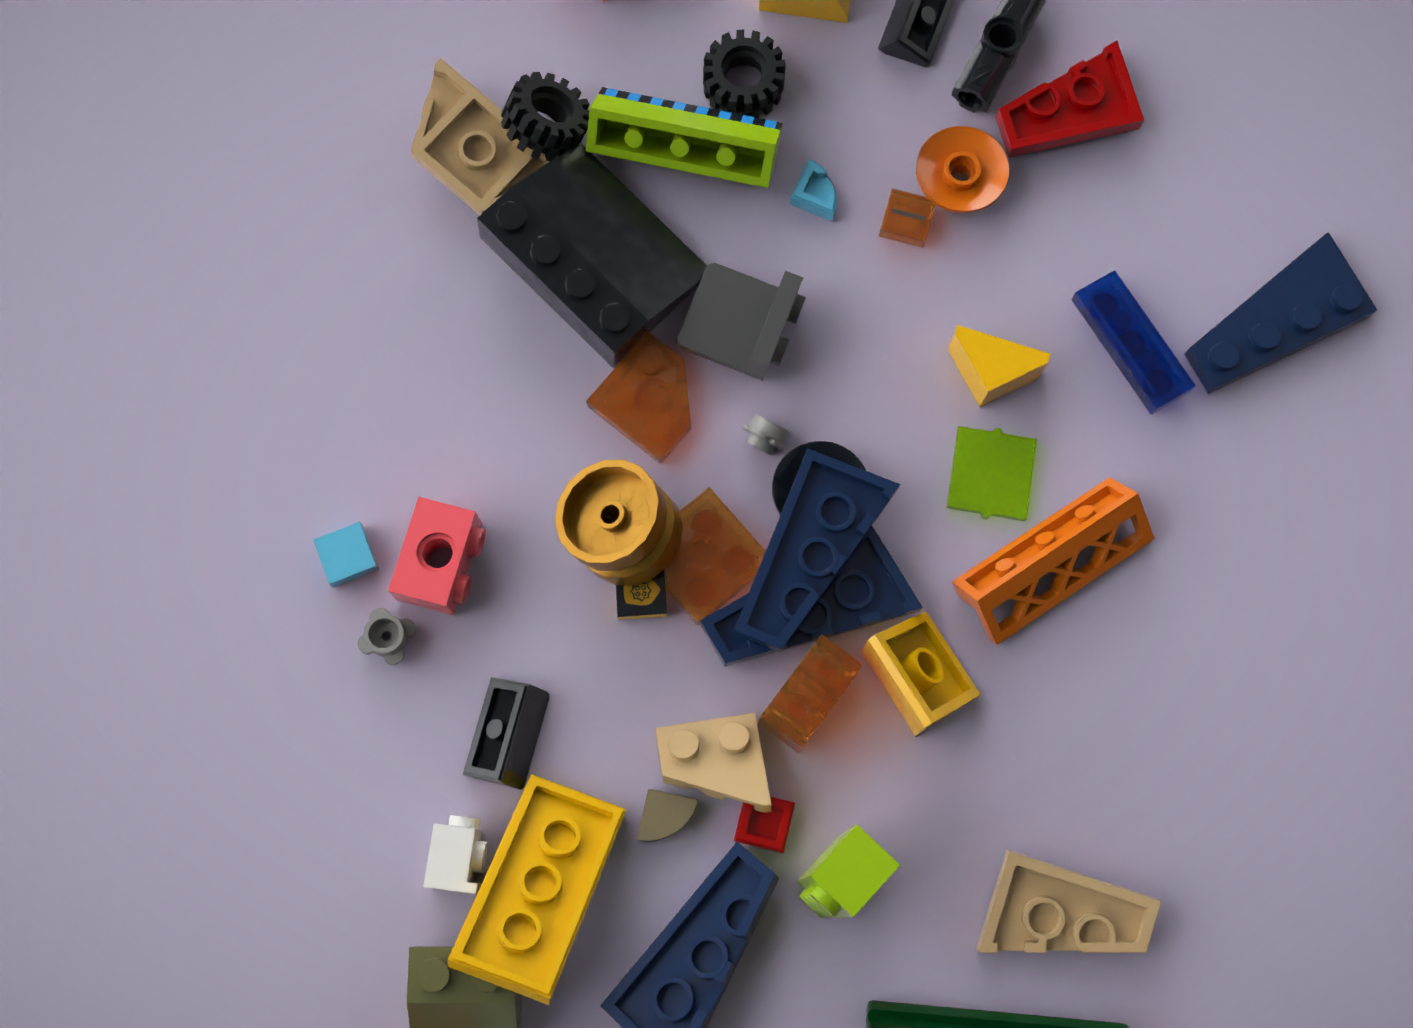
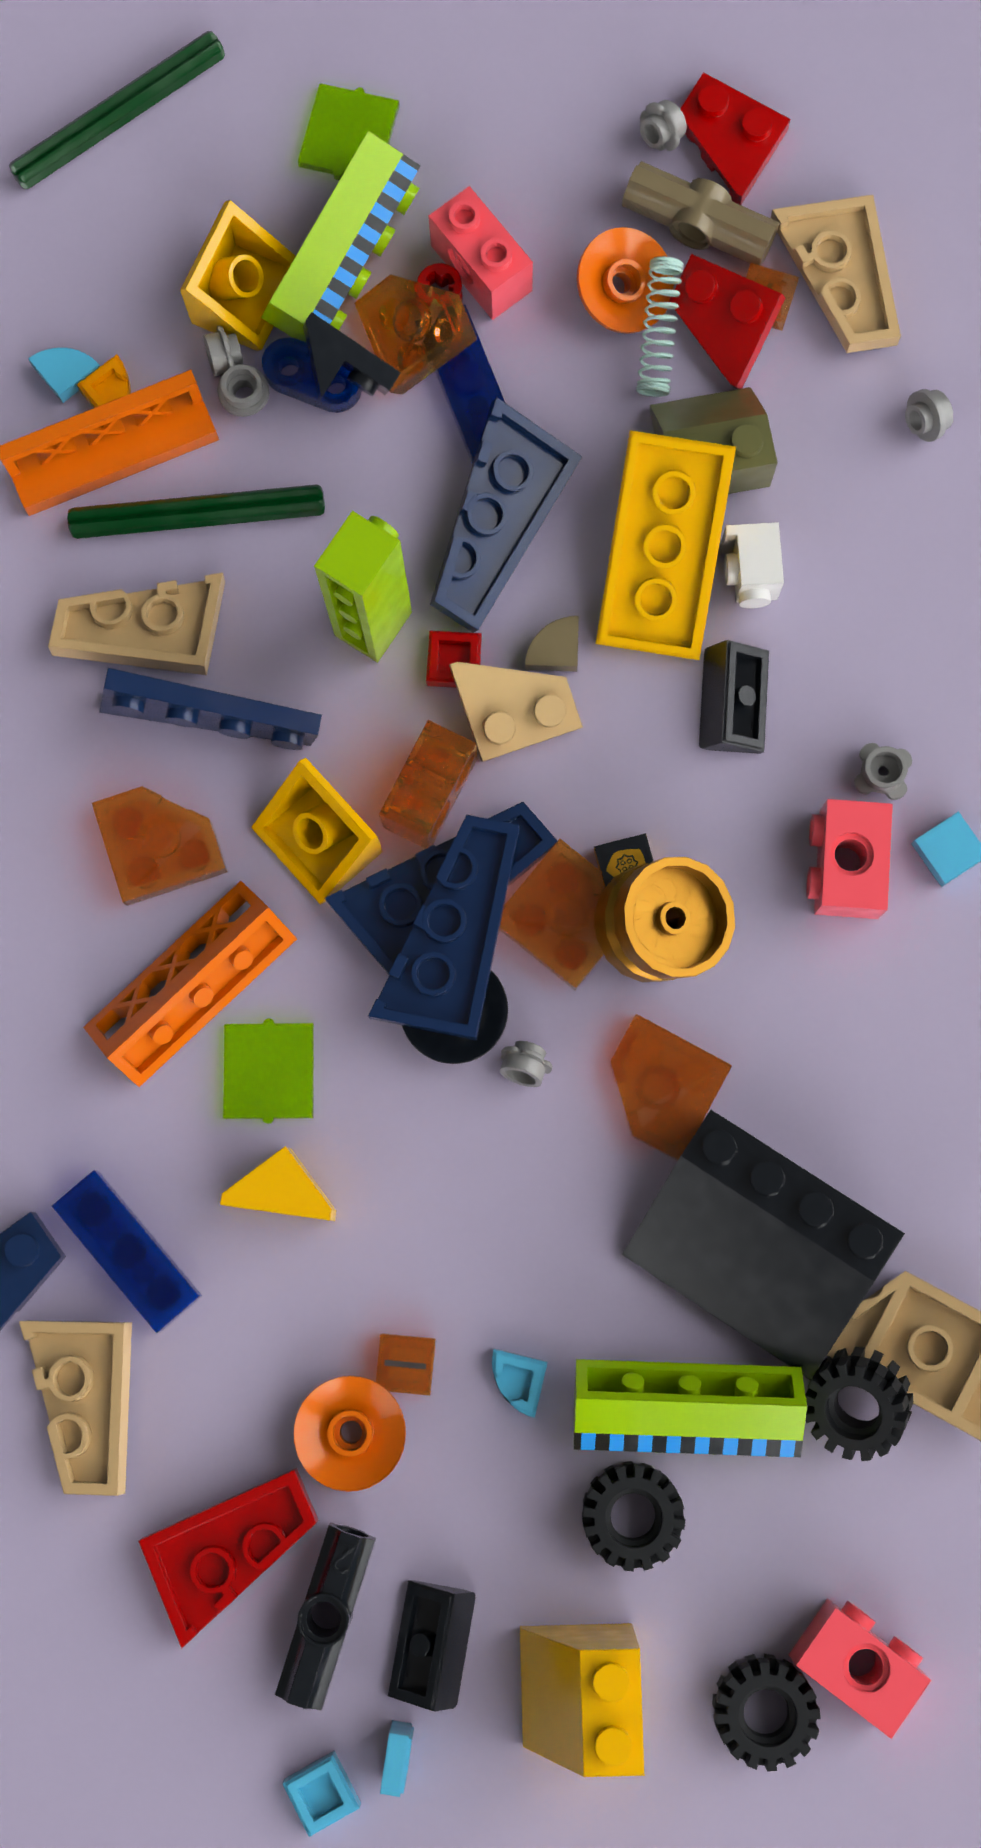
camera: 175 degrees right, 5 degrees up
(244, 984) = (928, 414): none -> light grey plate
(740, 319) = (577, 1192): dark grey bracket -> none
(937, 777) = (200, 708): none -> dark blue wing
(1072, 691) = (156, 844): none -> clear orange plate
(1176, 236) = (86, 1397): none -> tan wing

